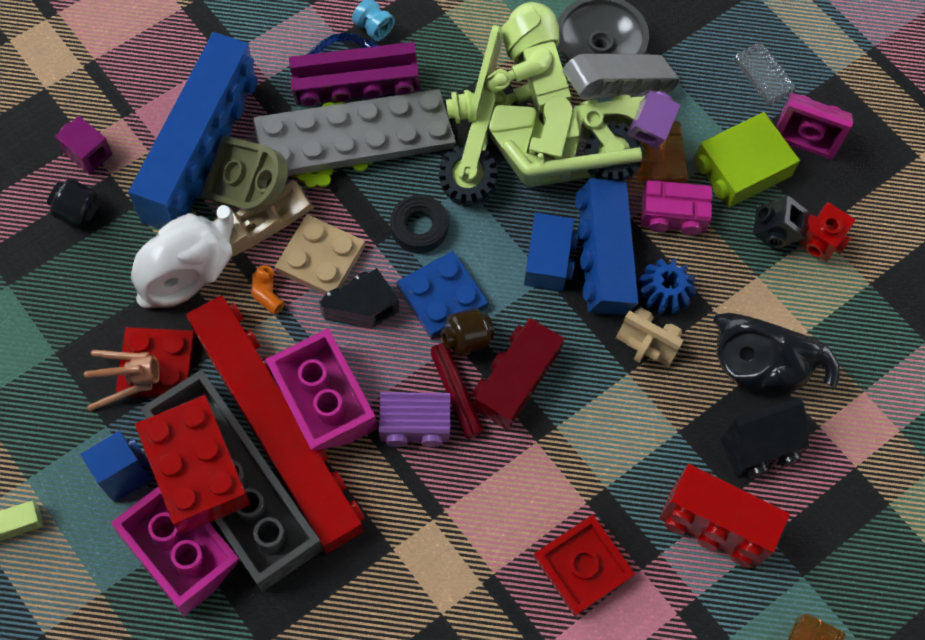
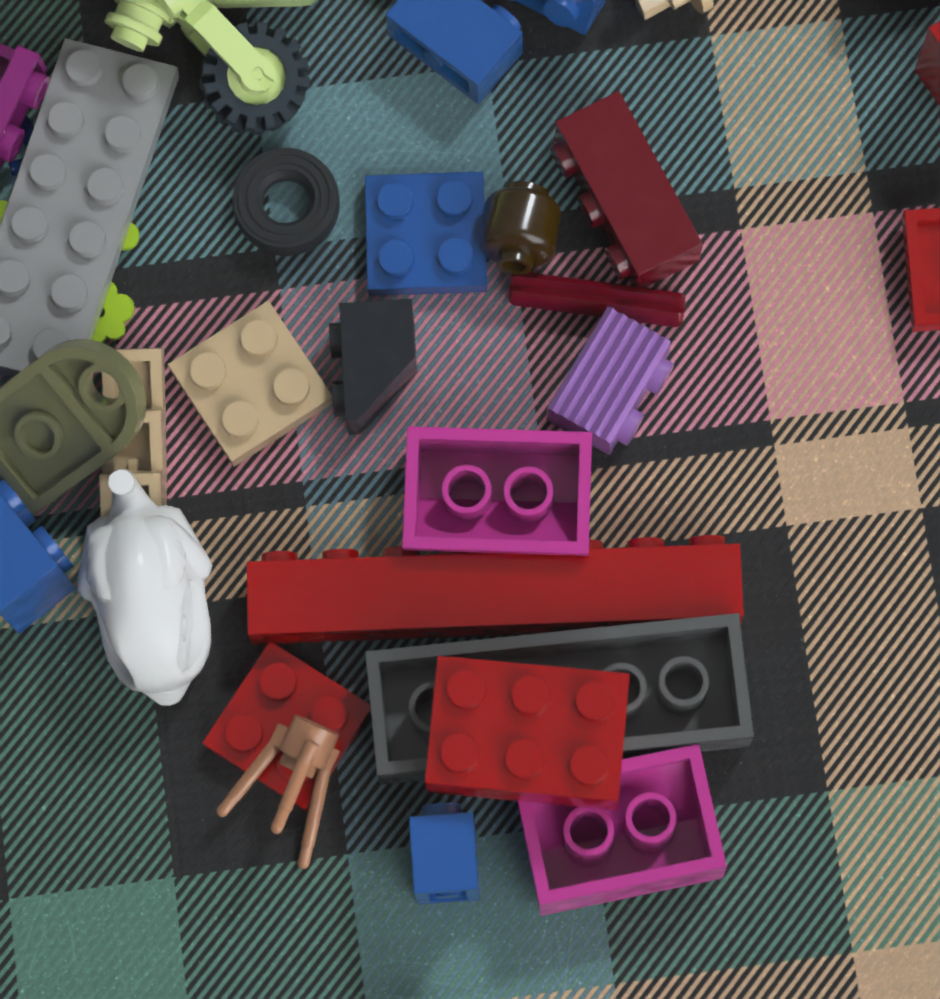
camera: 50 degrees left, 10 degrees up
(263, 290) = (259, 501): orange arm -> none

